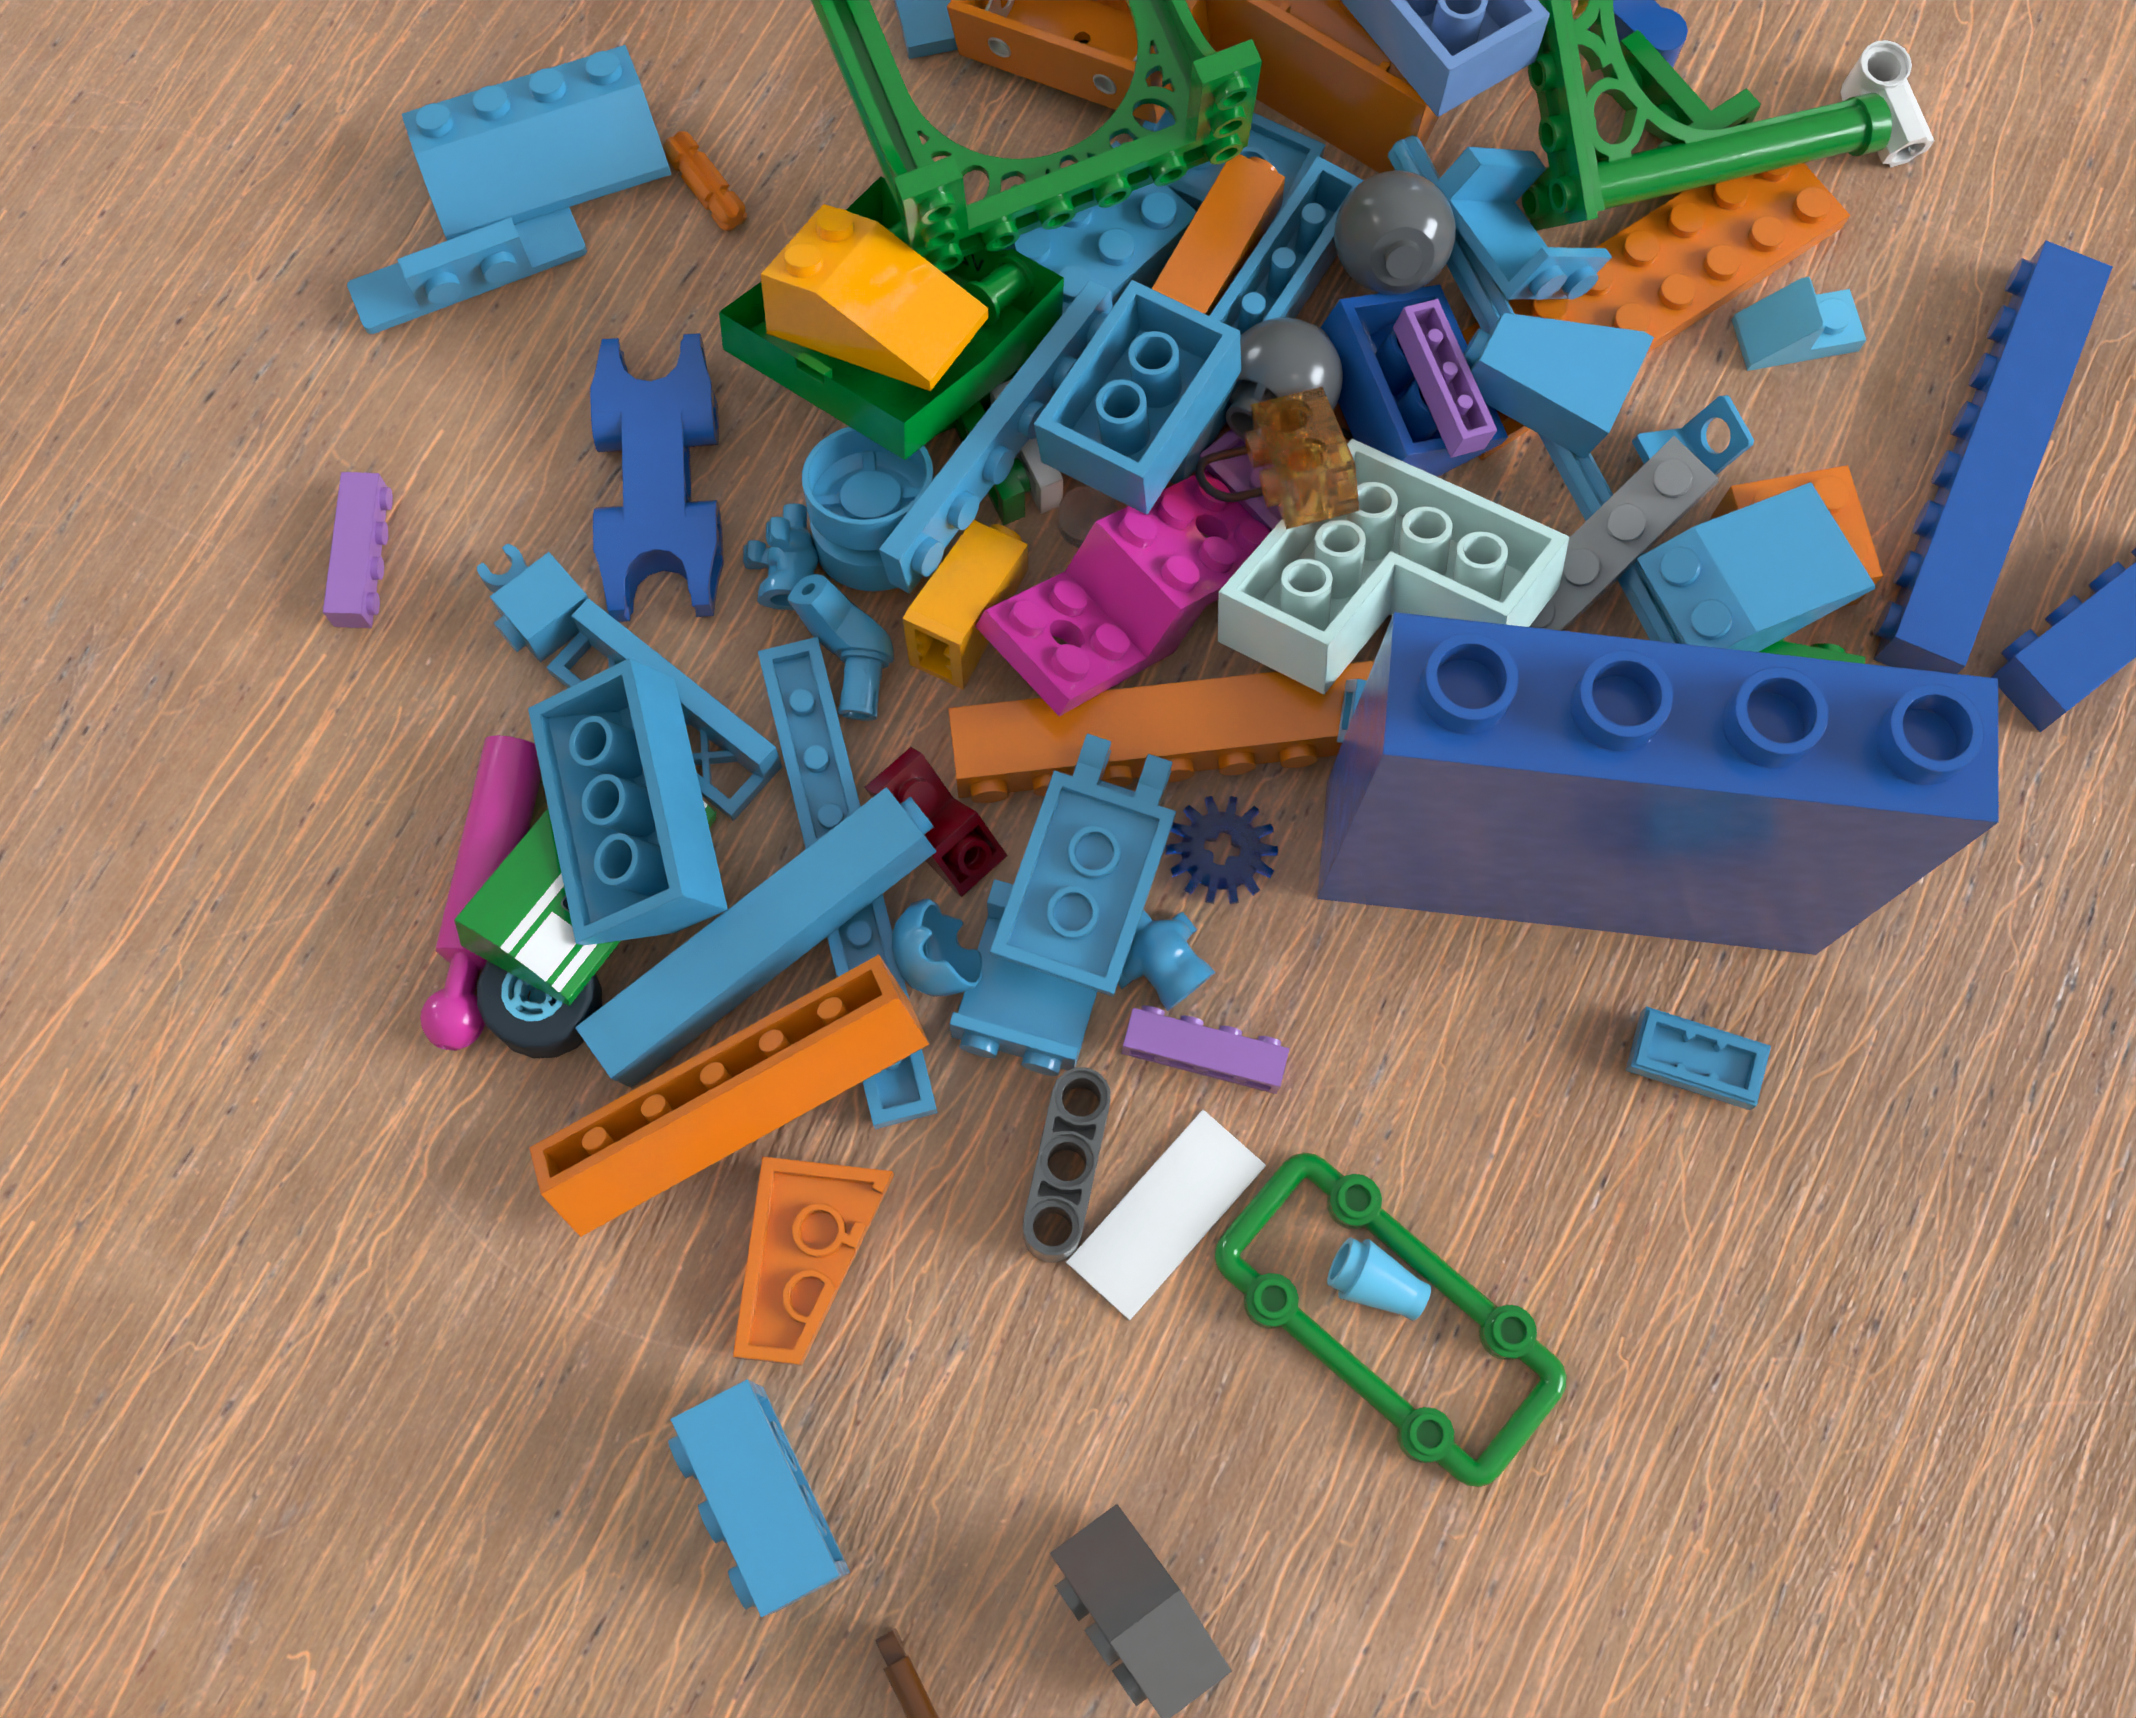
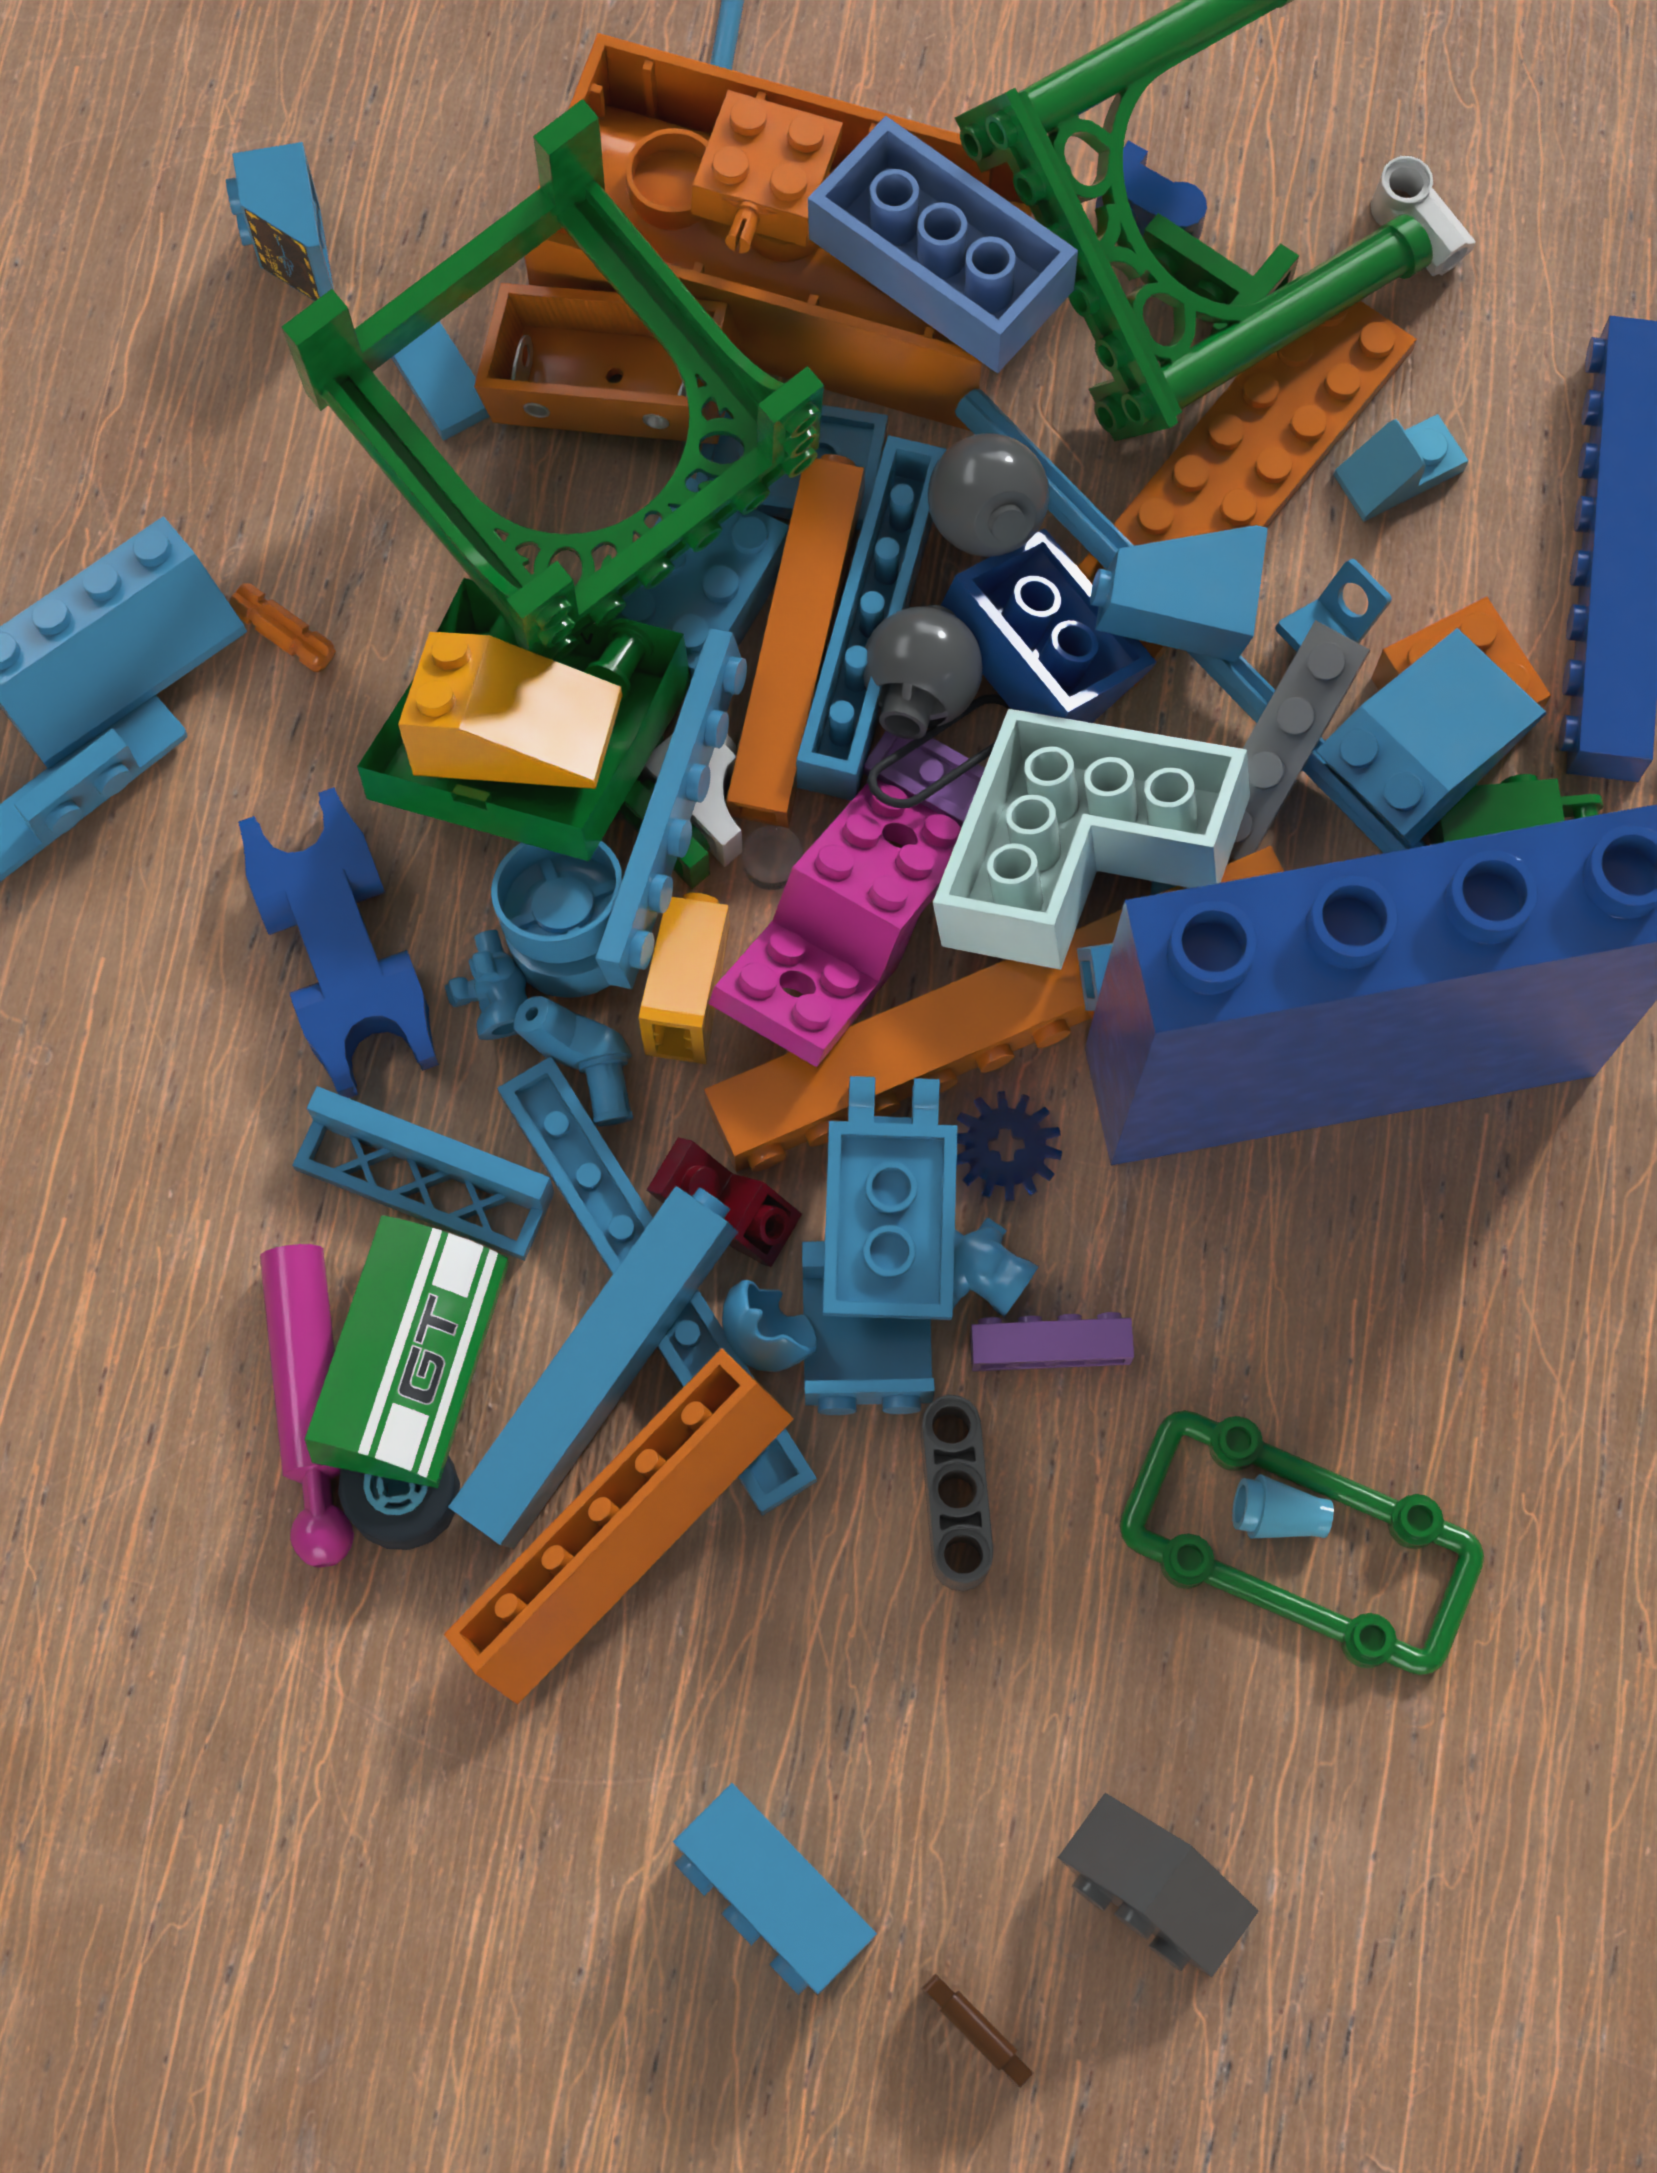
camera: 15 degrees left, 0 degrees up
(356, 550) = (63, 1105): medium lavender piece -> none
(534, 603) = (261, 1107): dark azure brick -> none
(626, 806) = (428, 1279): dark azure slope -> none
(799, 1252) = (730, 1653): orange wing -> none
(1139, 396) = (796, 733): dark azure brick -> none
(1165, 1214) = (1062, 1511): white piece -> none
(1302, 458) = (970, 745): clear orange brick -> none
(1444, 378) = (1080, 626): medium lavender piece -> none
(1483, 197) = (1092, 463): dark azure panel -> none
(1698, 1058) = (1514, 1209): dark azure plate -> none

